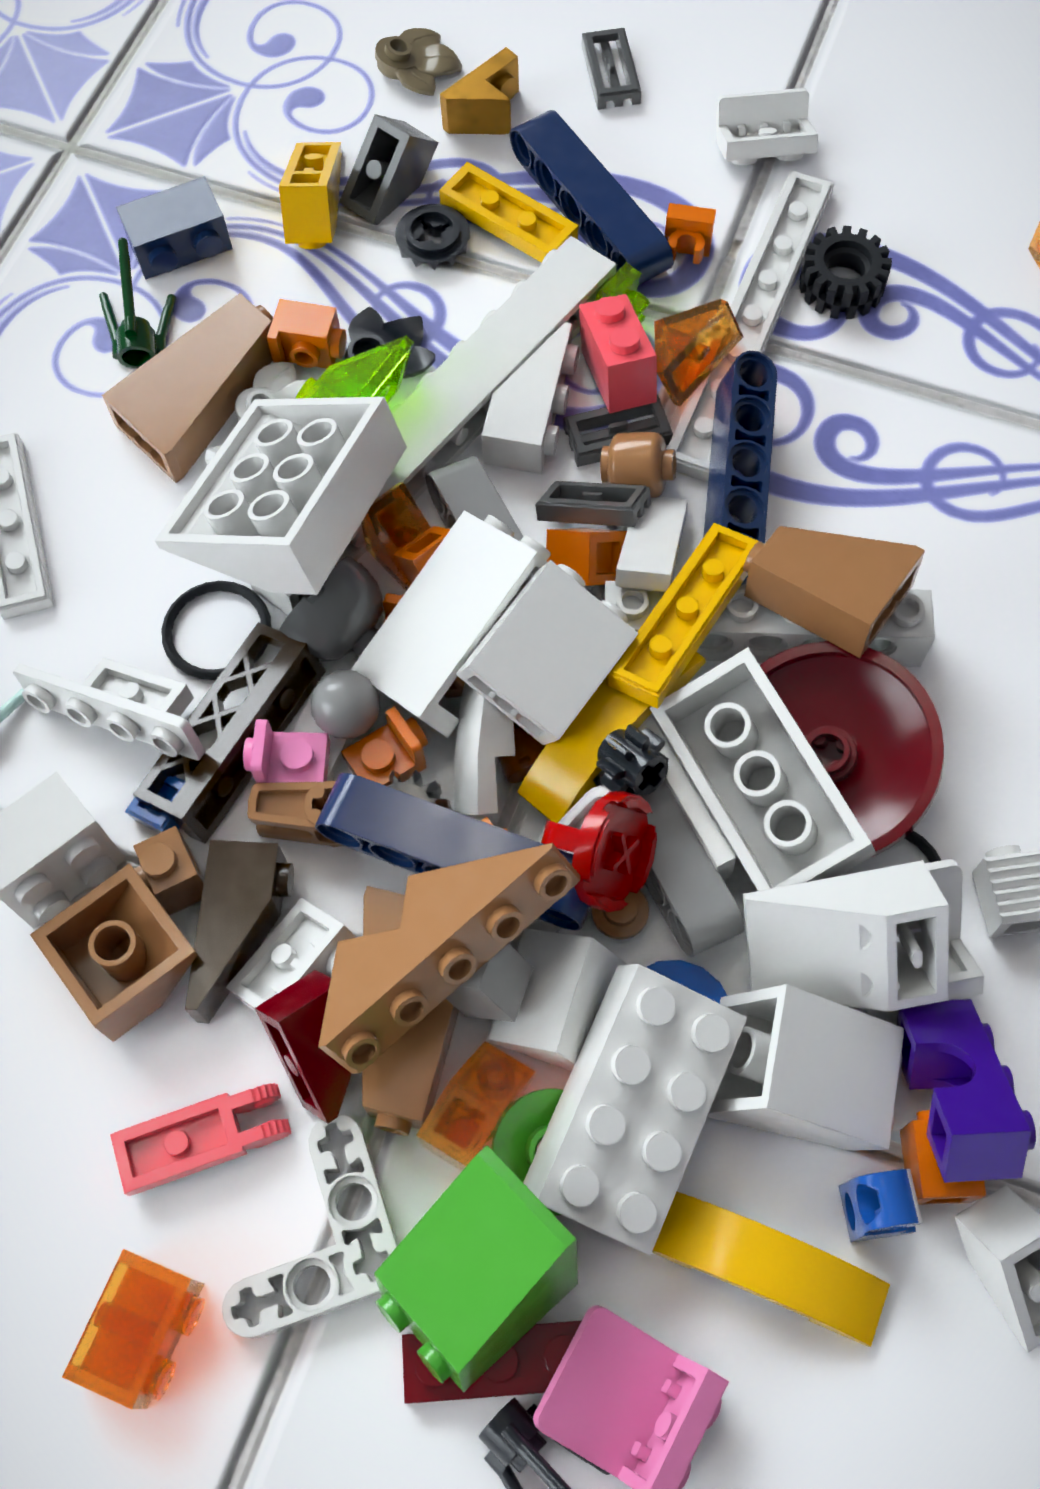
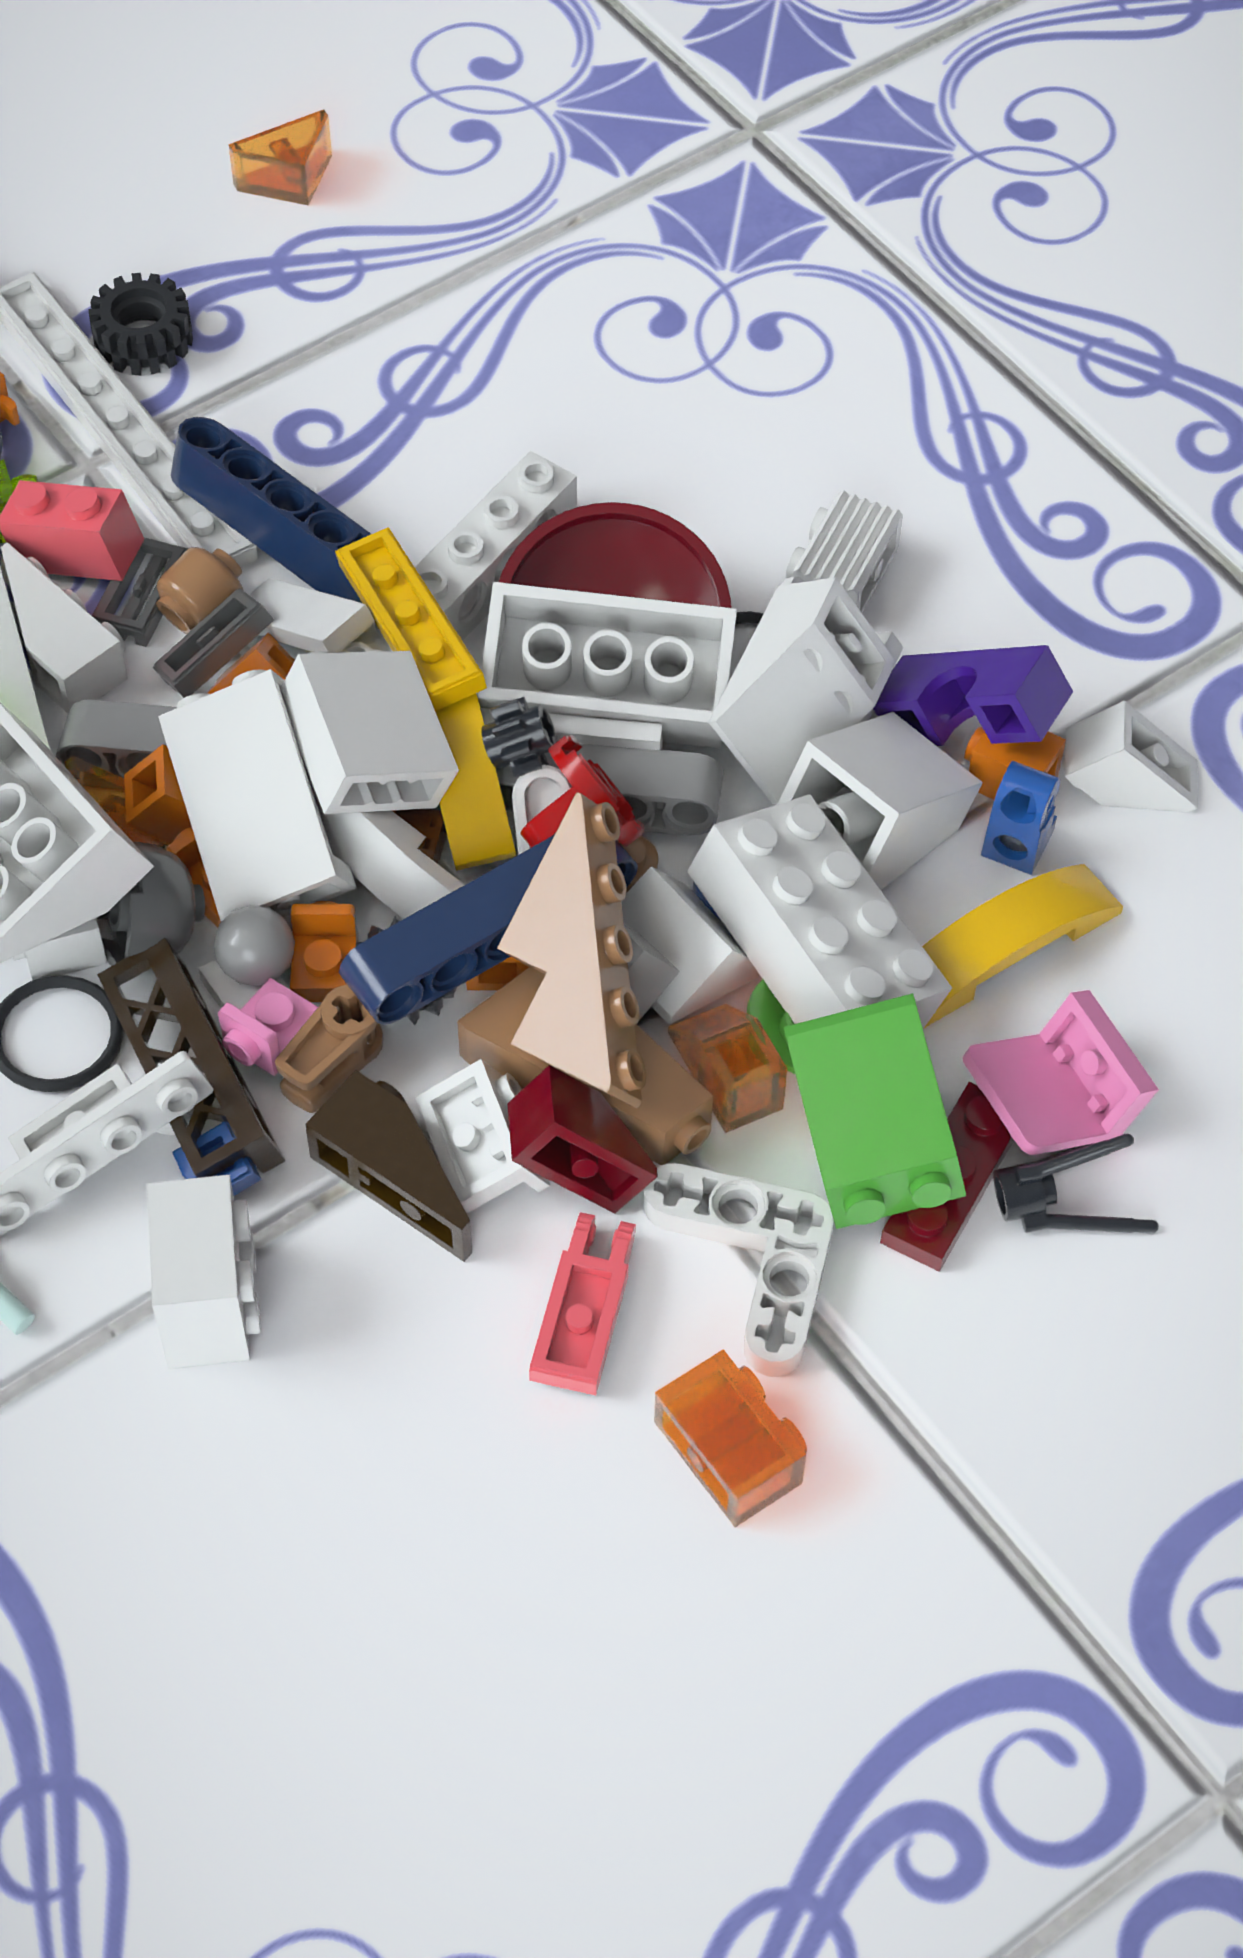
camera: 60 degrees left, 10 degrees down
(116, 952) = (356, 1263): medium nougat slope -> none
(170, 870) = (301, 1190): medium nougat brick -> none
(693, 345) = (119, 460): clear orange slope -> none
(832, 582) = (475, 500): medium nougat slope -> none

